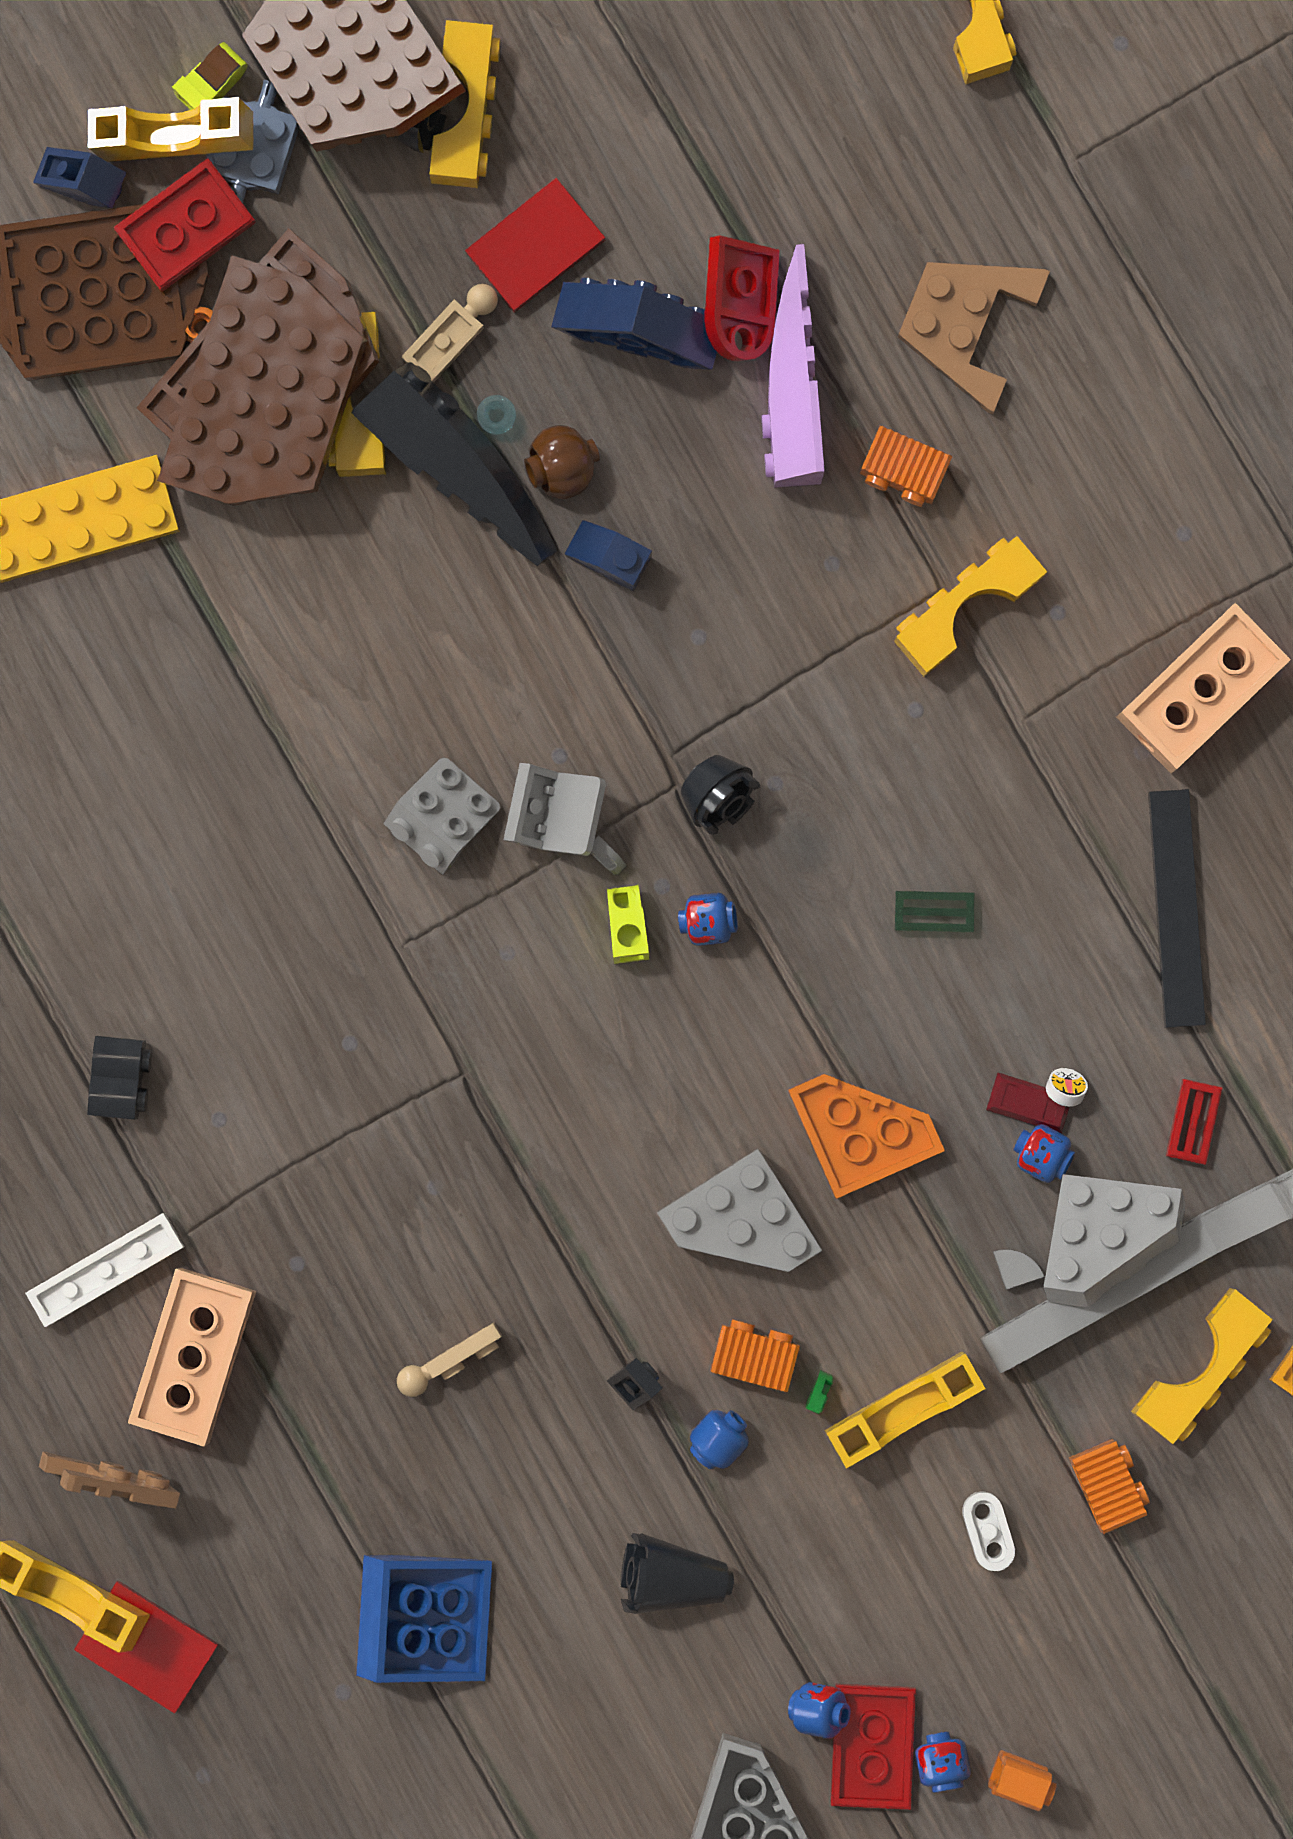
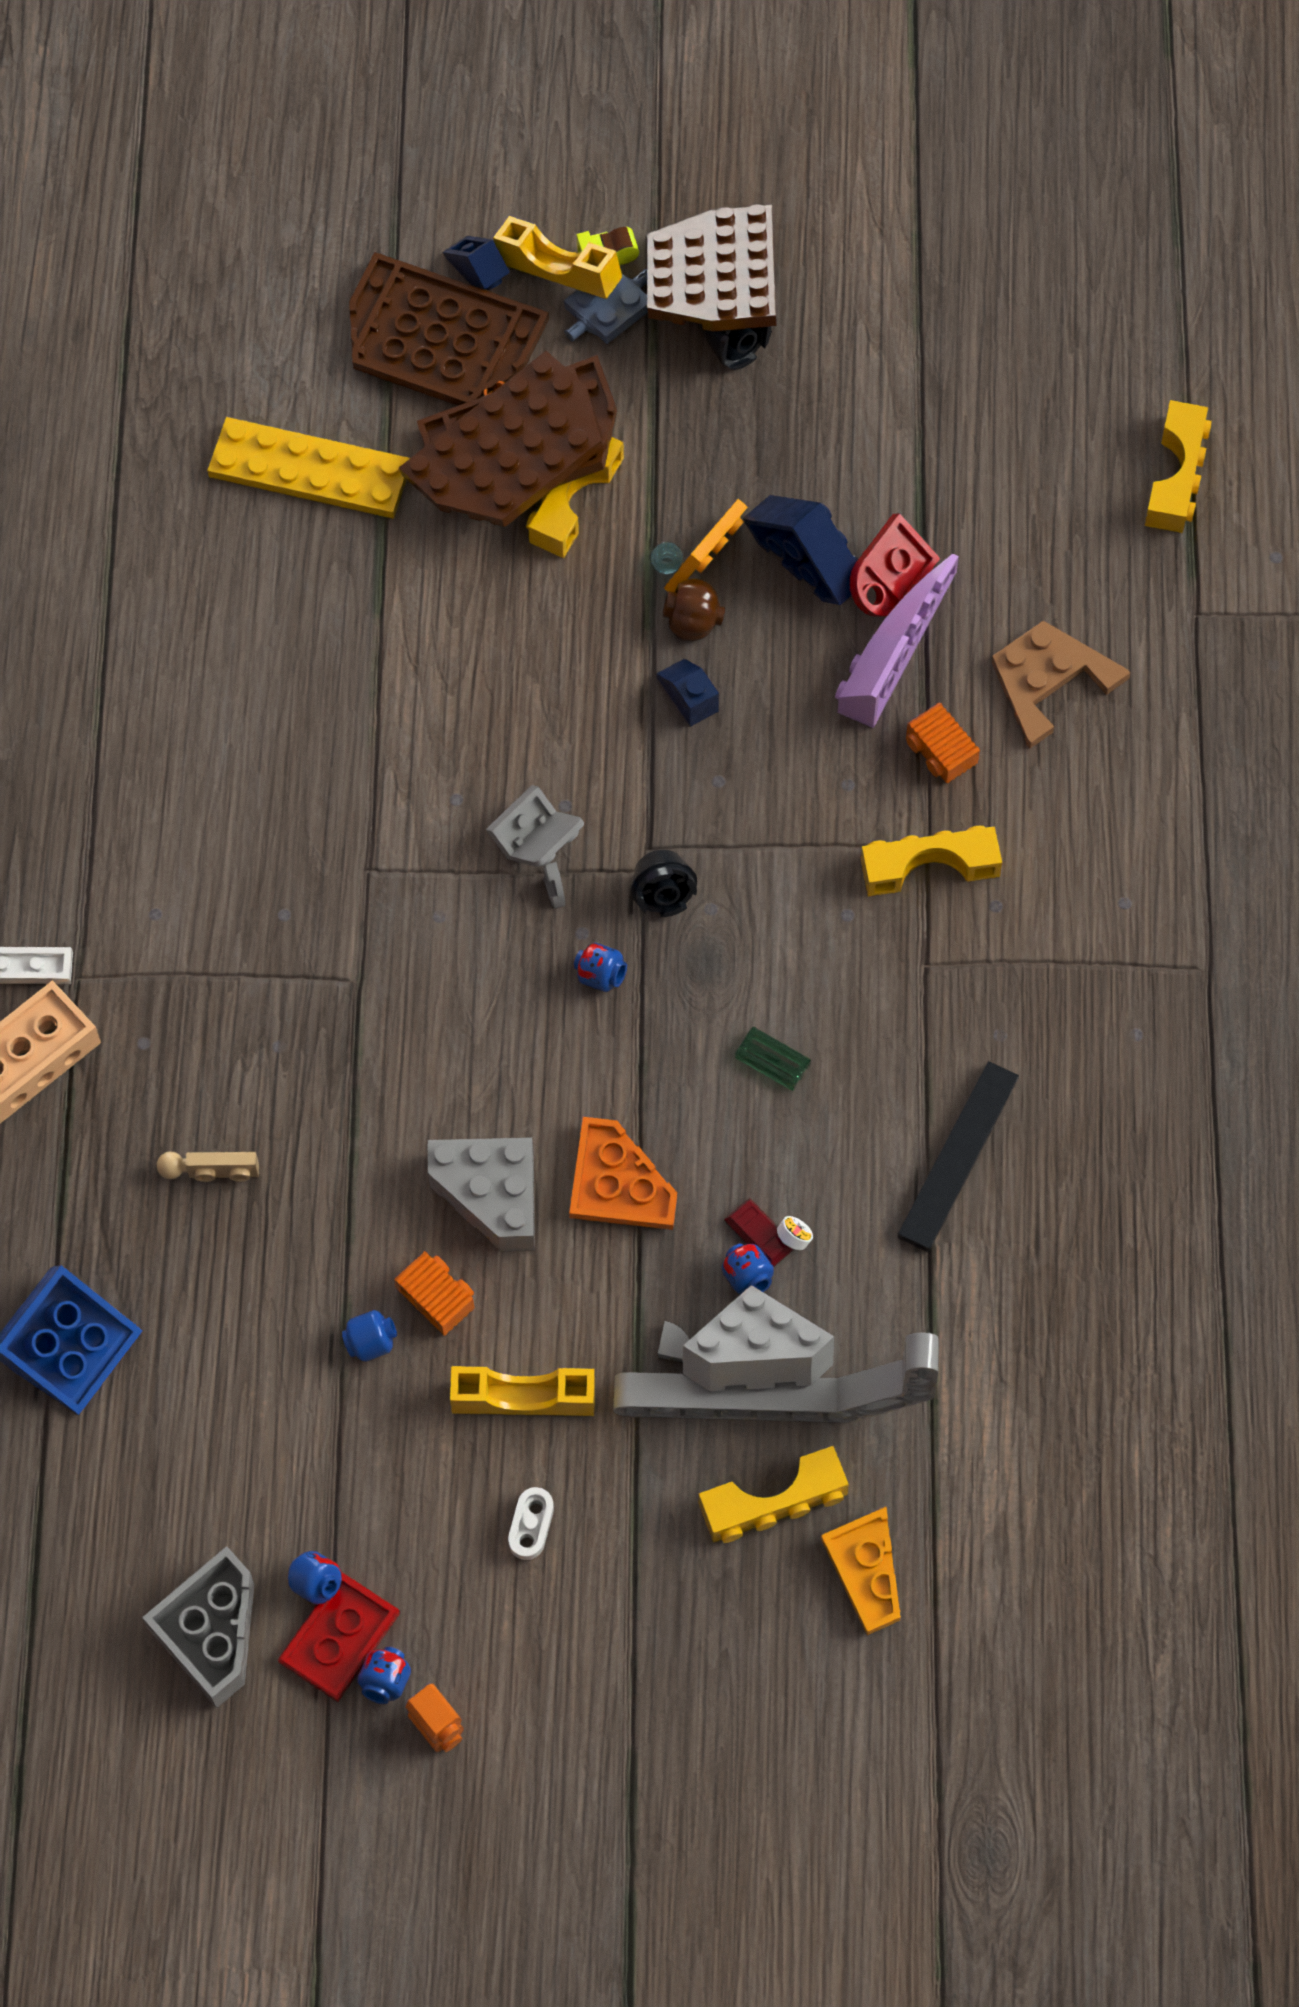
camera: 35 degrees right, 20 degrees down
(118, 1077) = (102, 841): black brick -> none
(184, 225) = (527, 323): red tile -> none
(438, 437) = (614, 538): black wedge -> none
(441, 814) = (451, 791): light grey bracket -> none
(451, 332) = (668, 489): tan plate -> none
(458, 152) = (749, 379): yellow arch -> none
(535, 245) = (766, 466): red tile -> none
(535, 367) = (712, 542): none -> light orange wing
(627, 925) = (537, 941): neon yellow leg -> none
(635, 1383) = (333, 1254): black plate -> none
(670, 1577) = (268, 1412): black cone -> none
(818, 1394) = (466, 1348): green tile -> none
(1109, 1485) = (645, 1541): orange brick -> none
(1179, 1114) = (859, 1337): red tile -> none
(1230, 689) = (1075, 986): light nougat brick -> none

